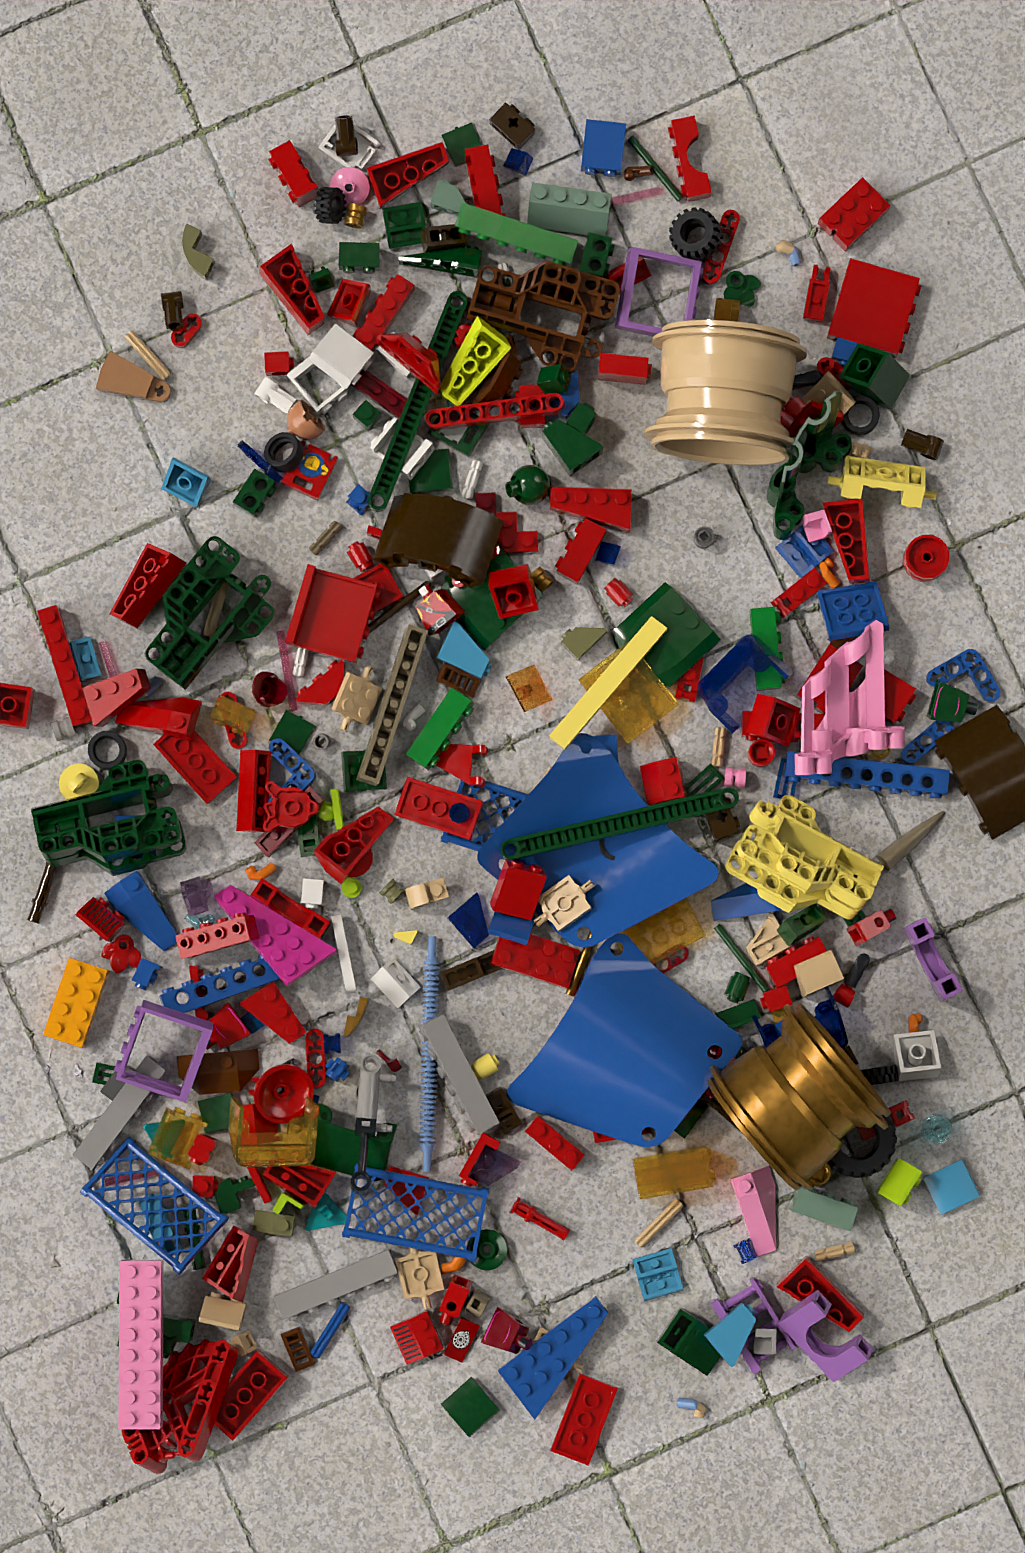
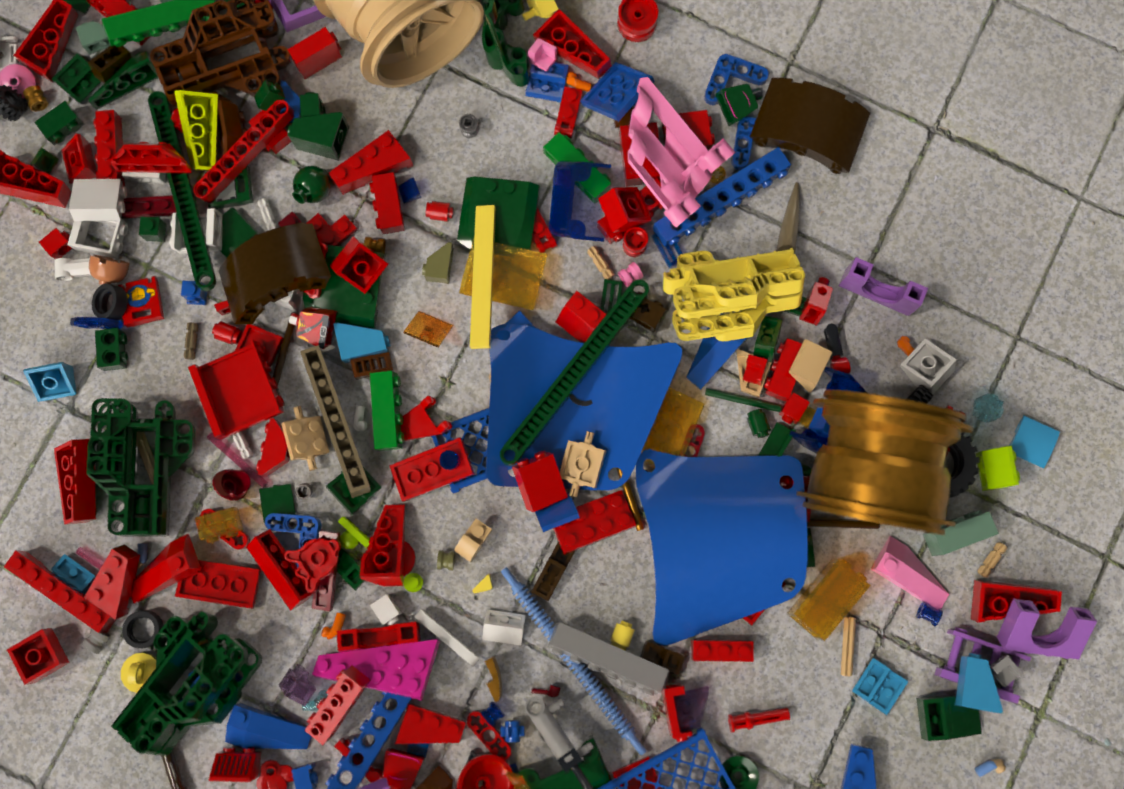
camera: 40 degrees left, 5 degrees down
(470, 921) = (523, 534): clear blue wing -> none
(770, 941) = (755, 369): none -> red panel

